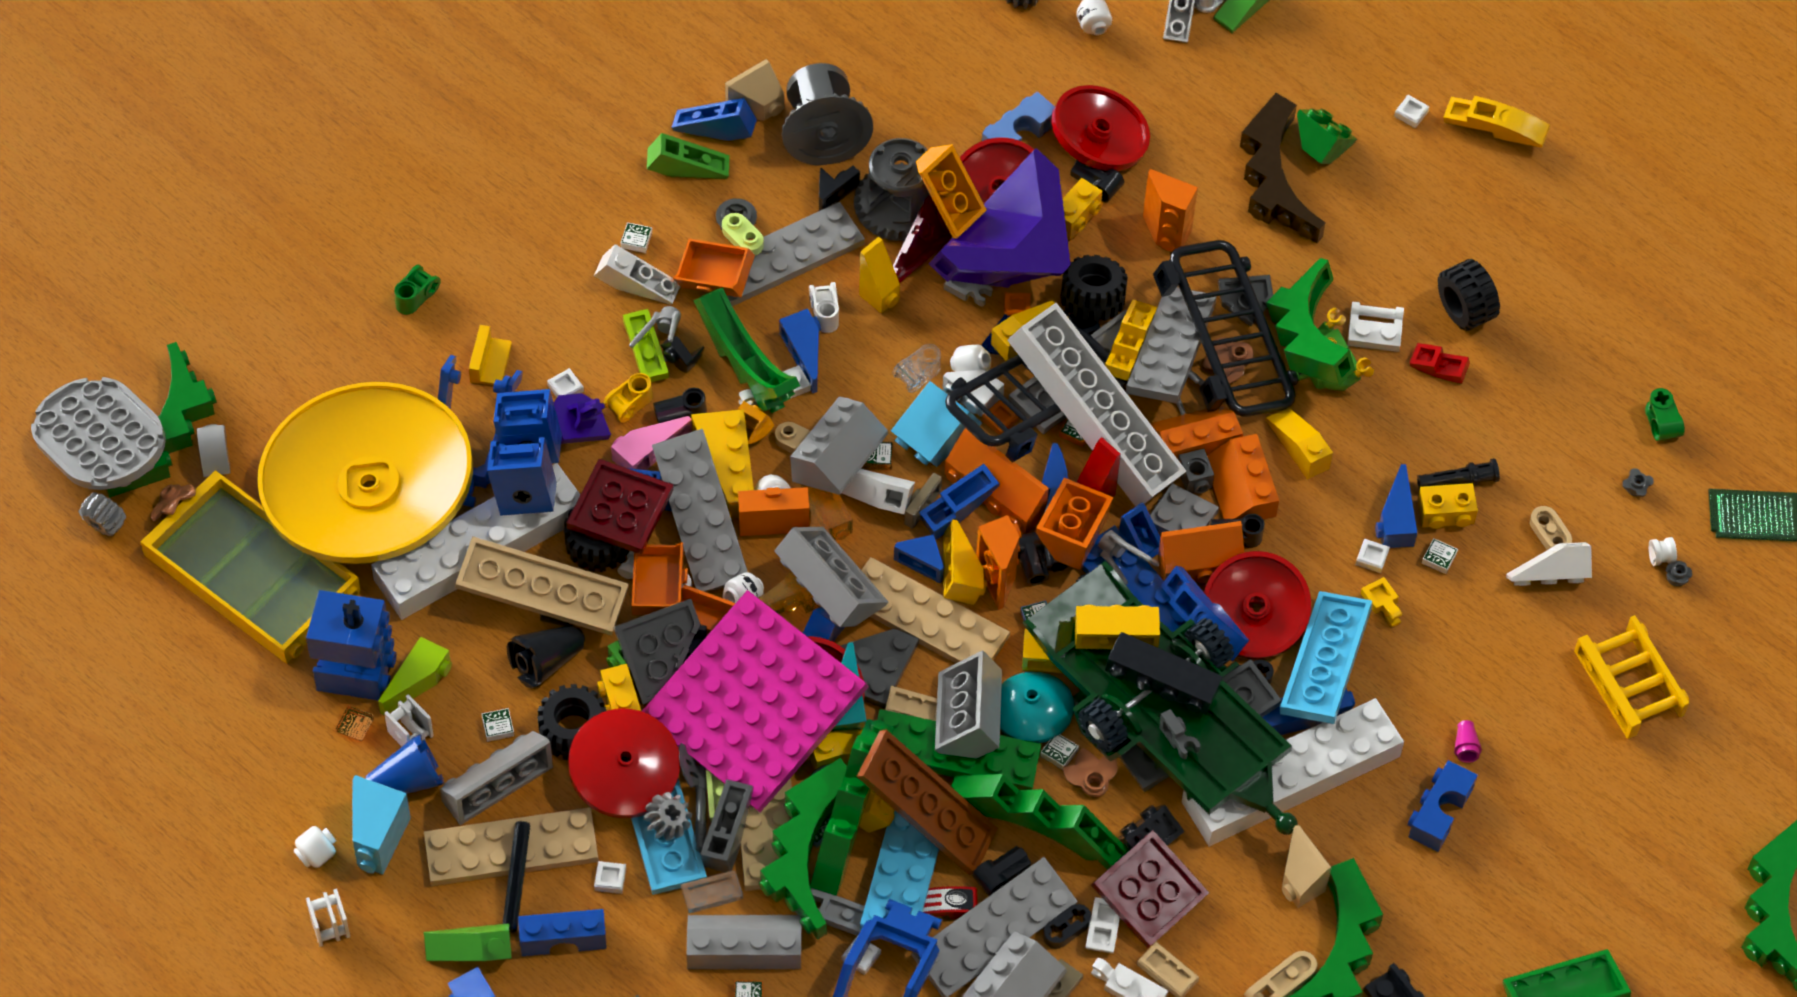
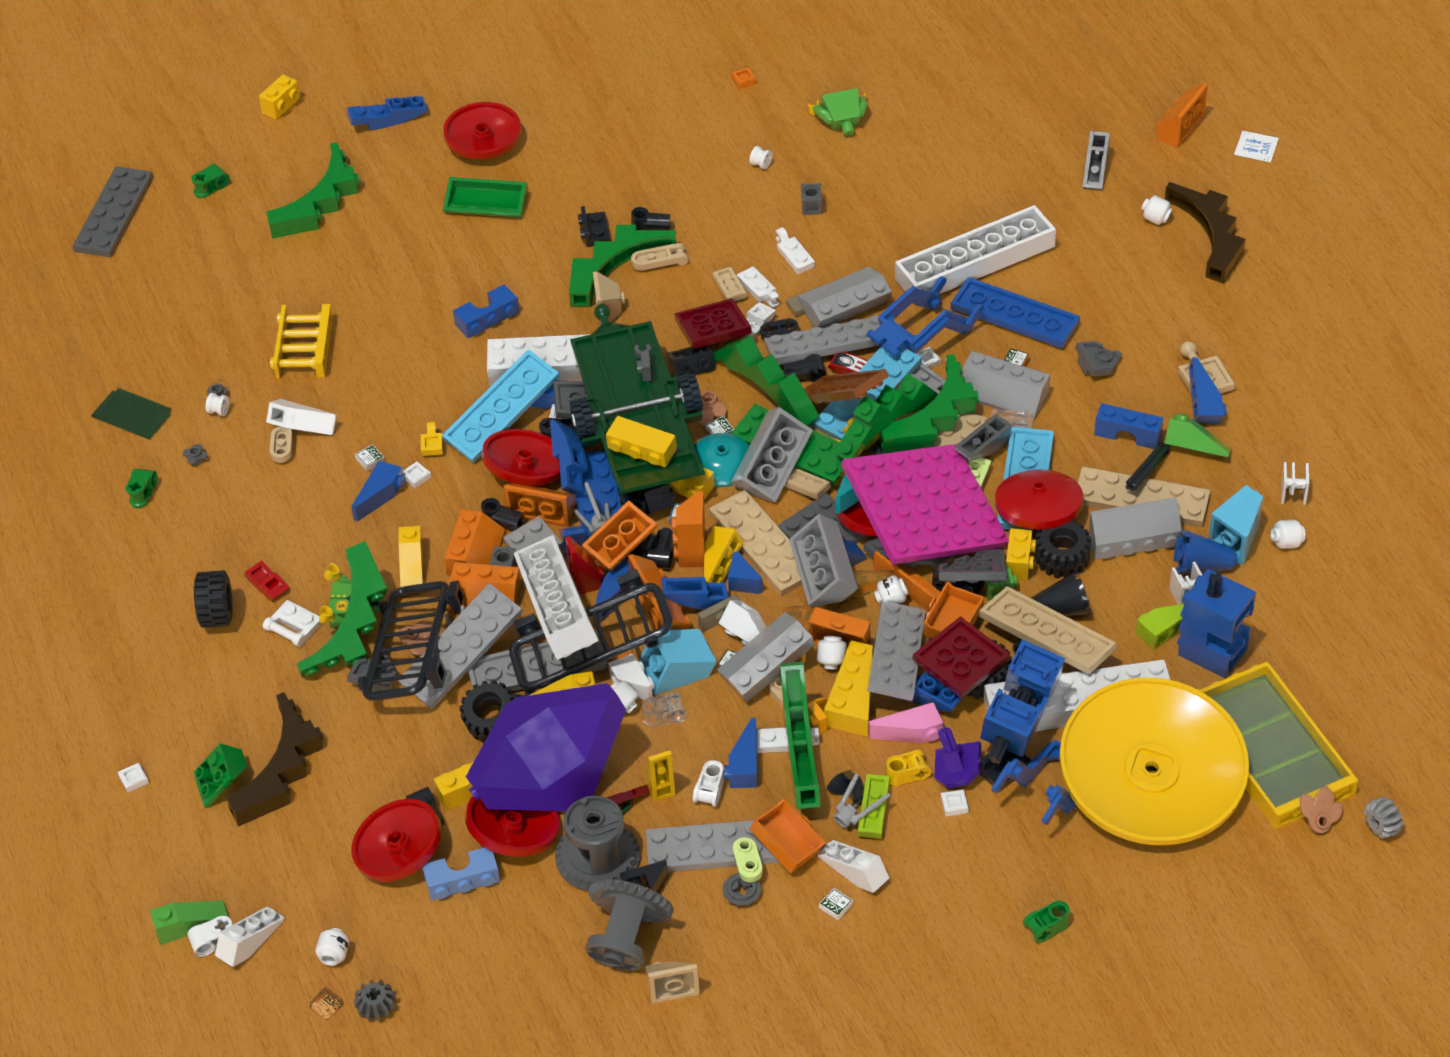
camera: 150 degrees left, 10 degrees down
(98, 433) = (1369, 877): light grey plate -> none
(186, 403) = (1328, 858): green arch -> none
(213, 449) = (1271, 845): light grey brick -> none
(488, 358) = (1009, 844): yellow panel -> none
(497, 724) = (1118, 575): tile -> none
(610, 877) = (1078, 456): white tile -> none
(667, 816) = (1023, 455): light grey gear -> none
(680, 405) = (863, 744): black piece -> none
(685, 159) = (763, 950): bright green slope -> none
(699, 783) = (992, 482): dark grey piece -> none
(719, 120) = (719, 977): blue slope -> none
(950, 188) = (570, 779): light orange slope -> none
(1130, 339) = (491, 658): yellow slope -> none
(1163, 674) = (631, 393): black brick -> none
(1169, 209) = (392, 733): orange slope -> none
(1447, 505) = (339, 481): yellow brick -> none
(1467, 742) = (442, 340): dark pink cone -> none
(1470, 473) = (307, 497): black pin -> none
(1501, 119) = (79, 733): yellow slope -> none

